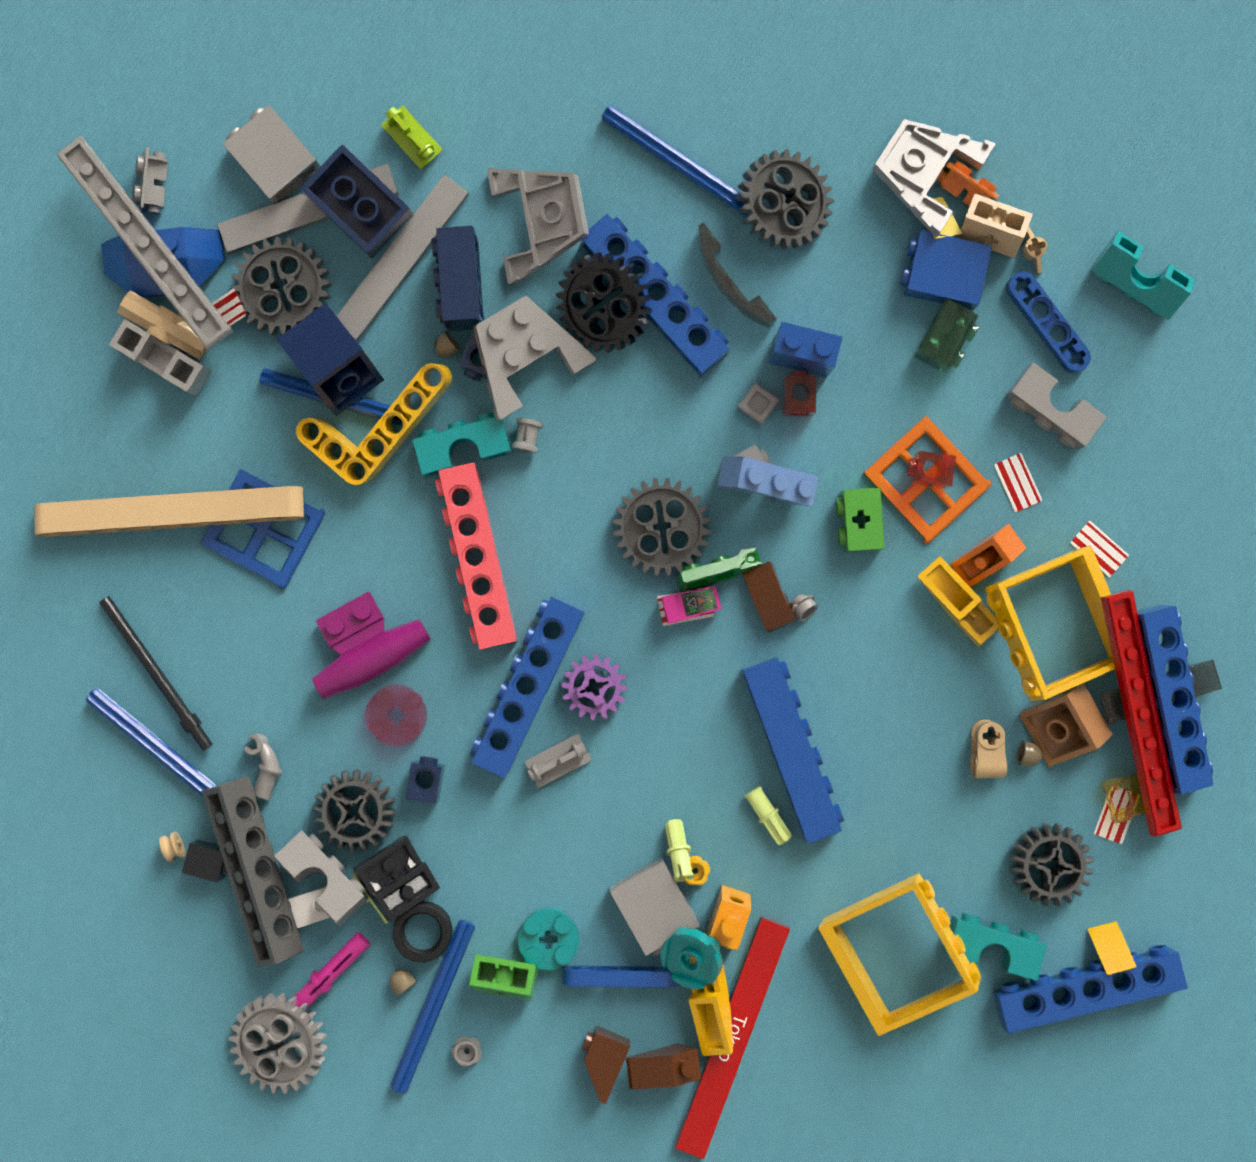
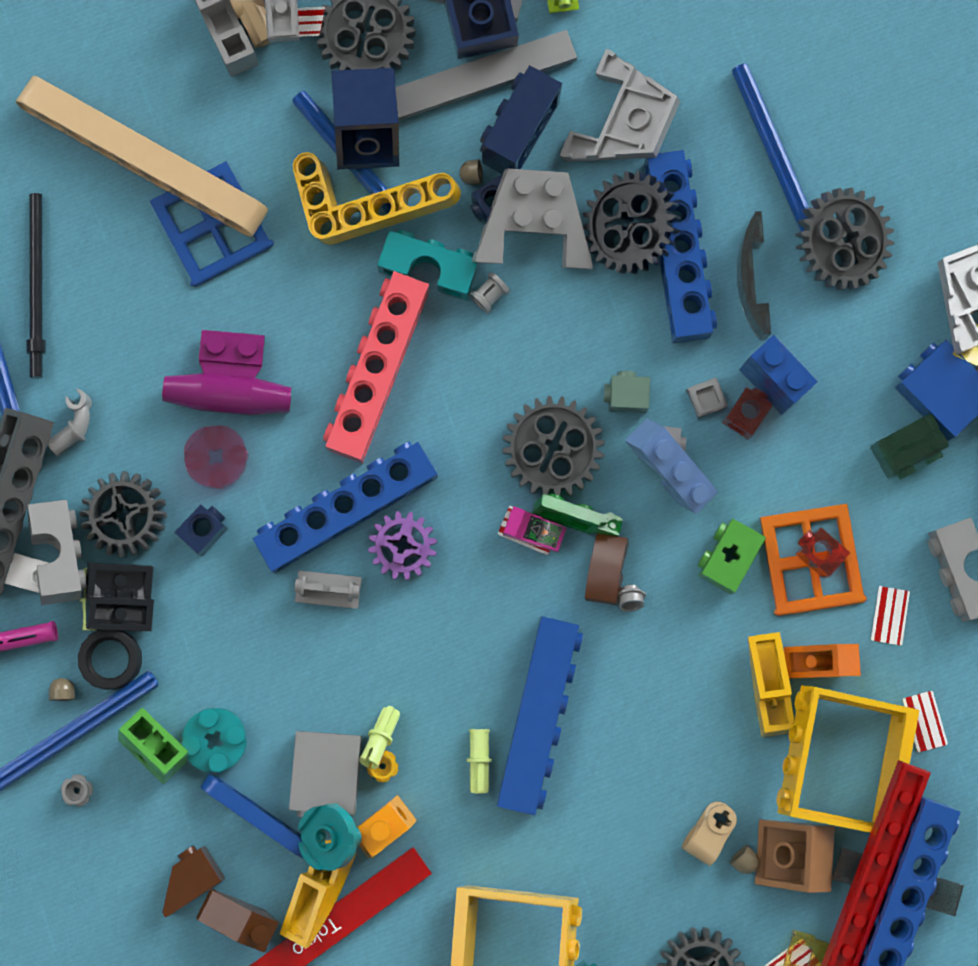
camera: 25 degrees right, 5 degrees down
(692, 443) = (627, 393): none -> sand green brick

